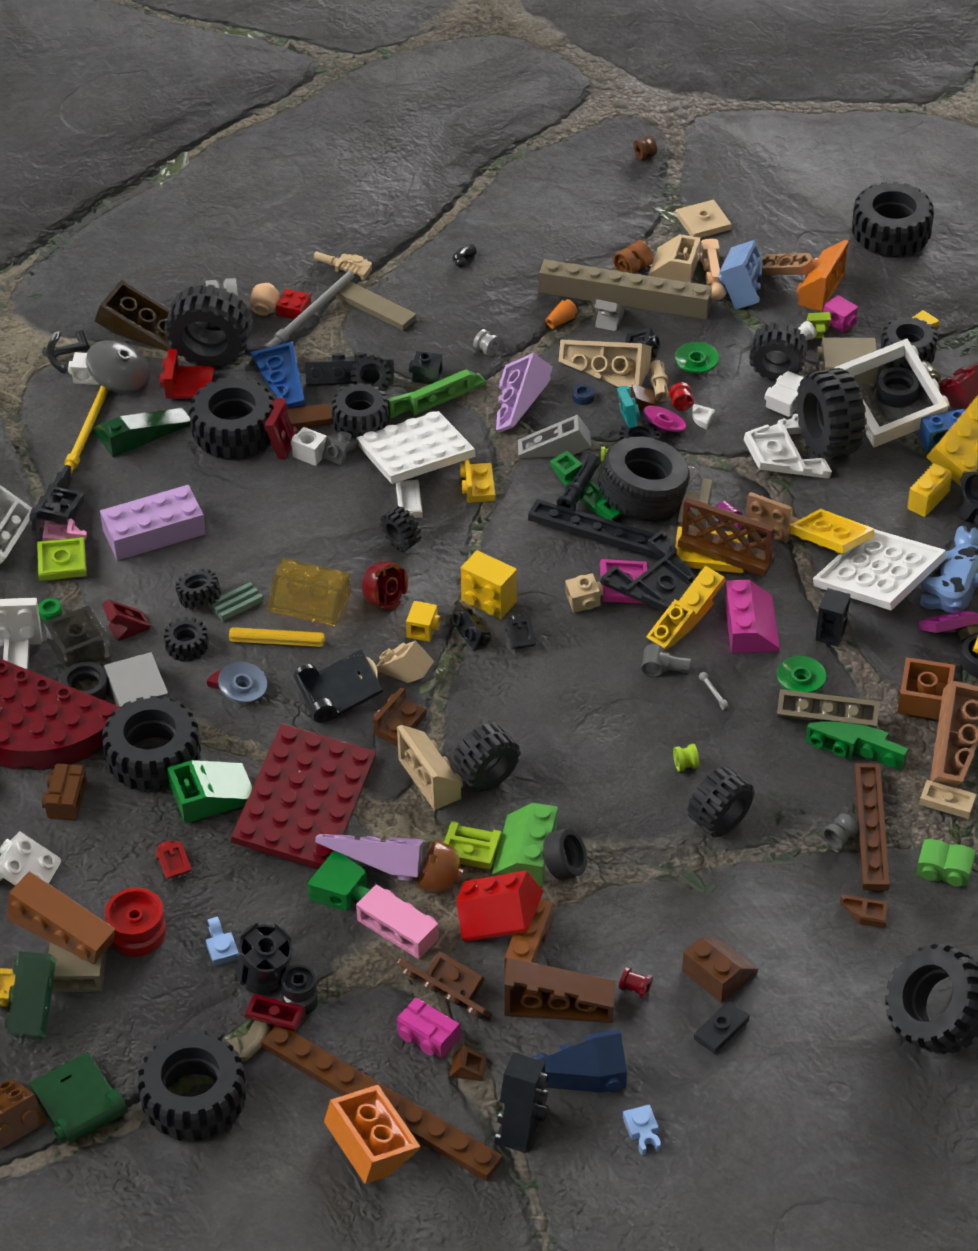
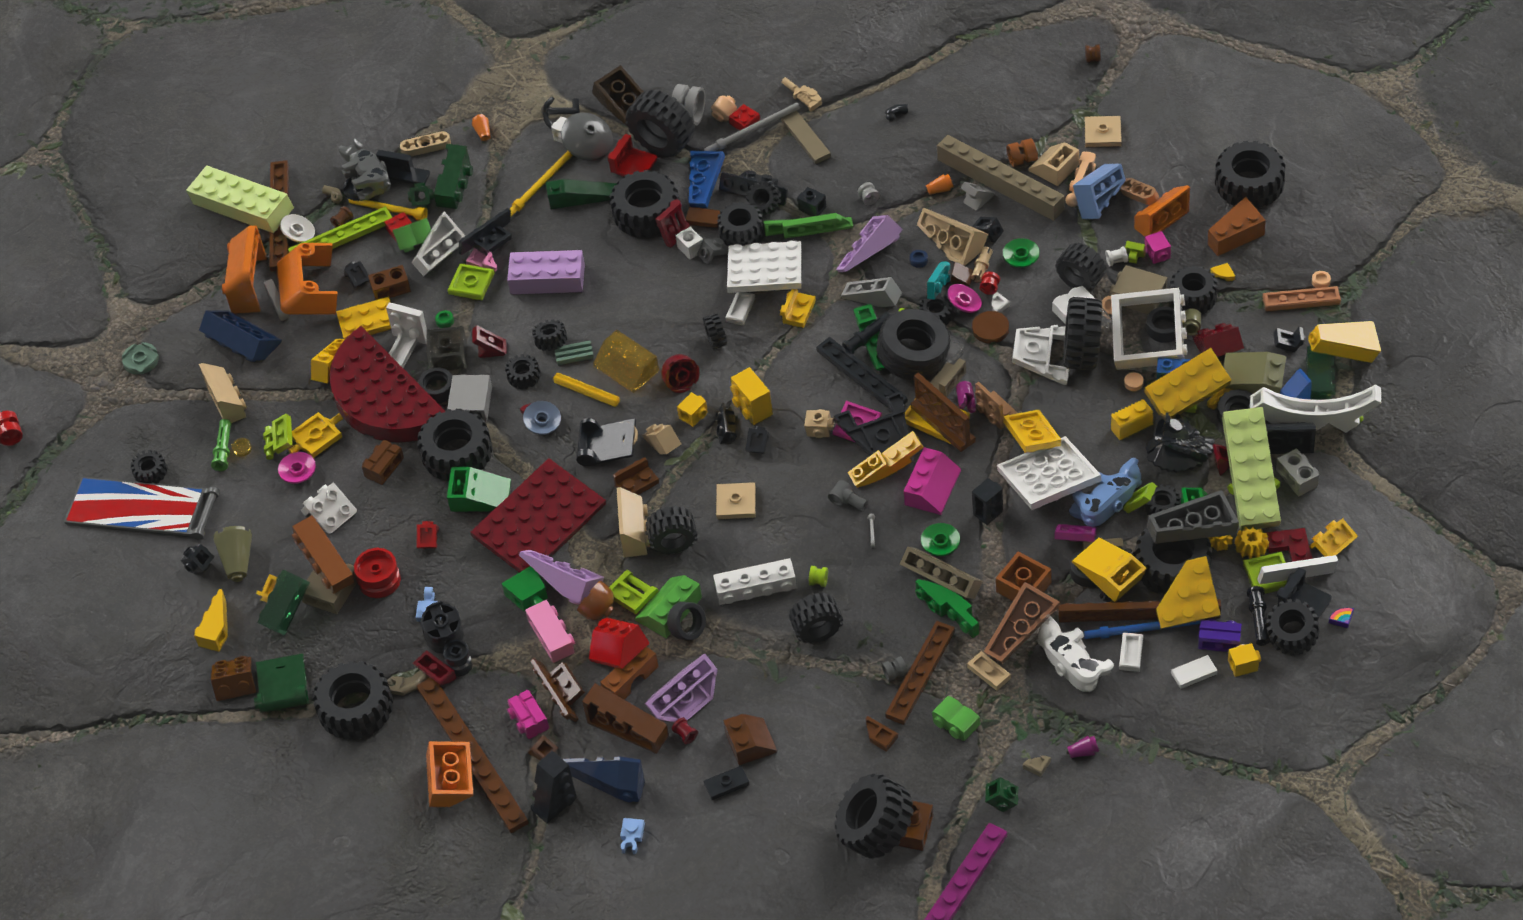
camera: 30 degrees right, 5 degrees up
(533, 706) = (736, 501): none -> tan plate
(611, 934) = (685, 692): none -> lavender wedge
(614, 786) = (755, 581): none -> white brick
(709, 441) = (990, 327): none -> reddish brown tile
(902, 453) = (1134, 381): none -> light nougat tile
(912, 273) = (1236, 228): none -> dark orange wedge

